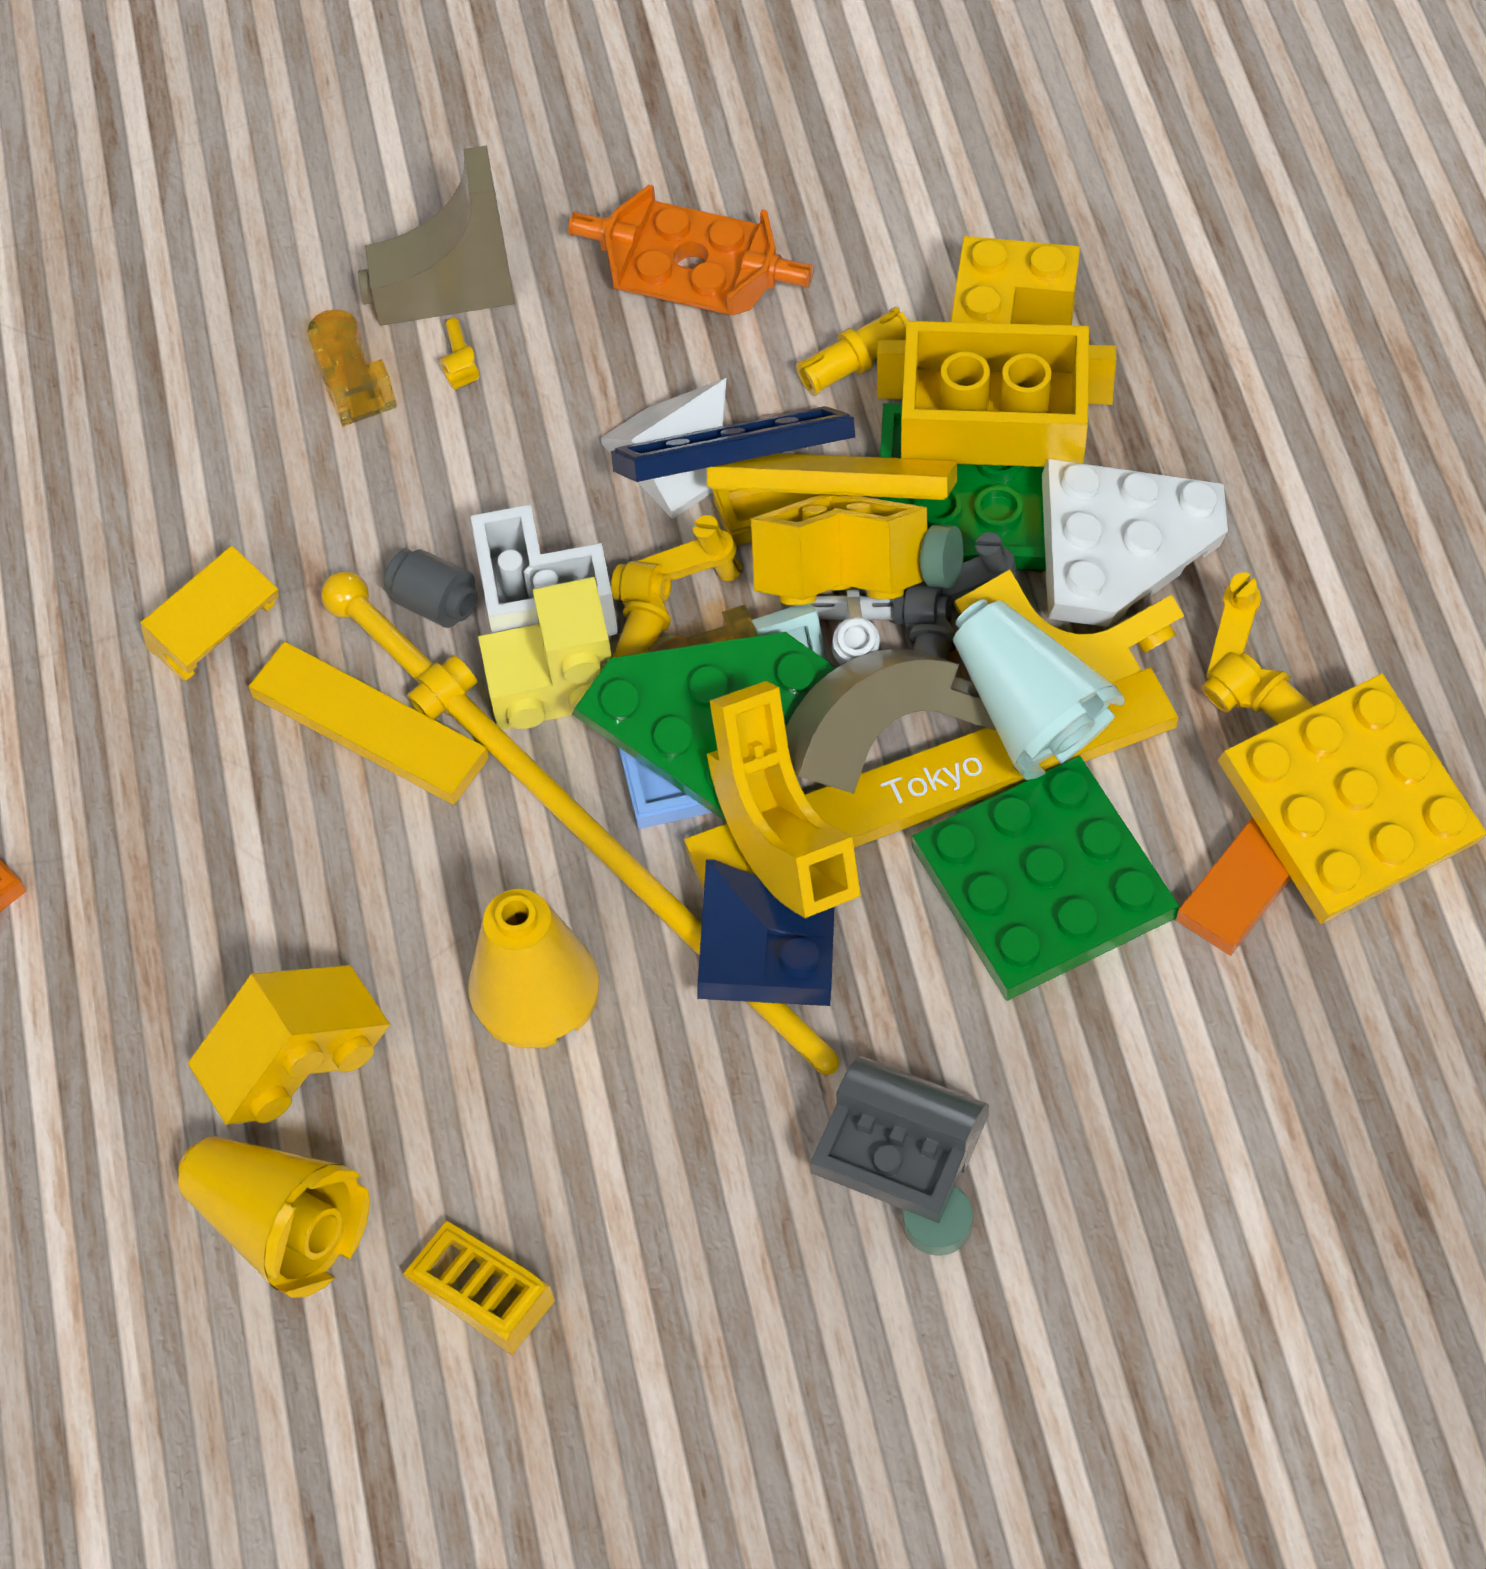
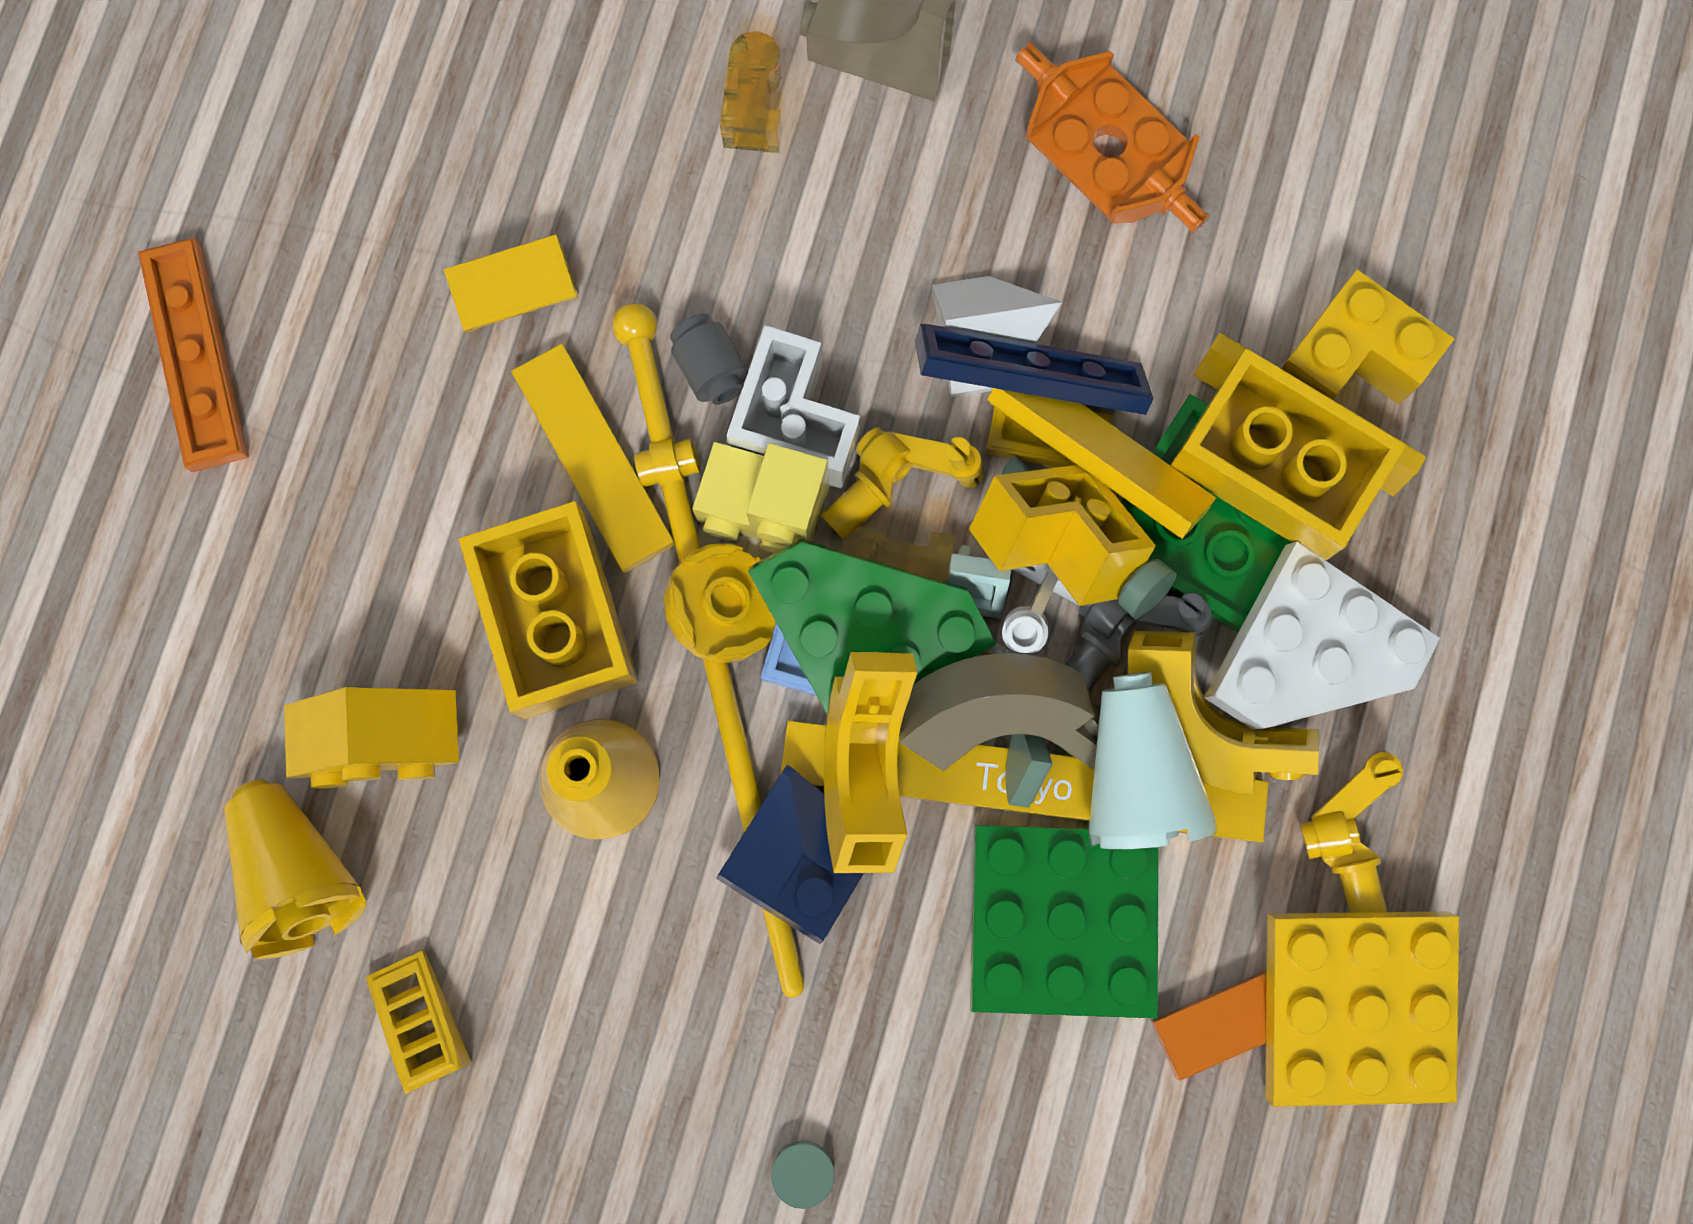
camera: 25 degrees right, 20 degrees up
(403, 852) = (547, 611): none -> yellow brick
(458, 365) = (852, 144): yellow hand -> none
(564, 771) = (717, 605): none -> yellow tile
(851, 352) = (1198, 321): yellow pin -> none
(899, 1138) = (807, 1101): dark grey brick -> none
(925, 753) = (1026, 768): none -> sand green tile

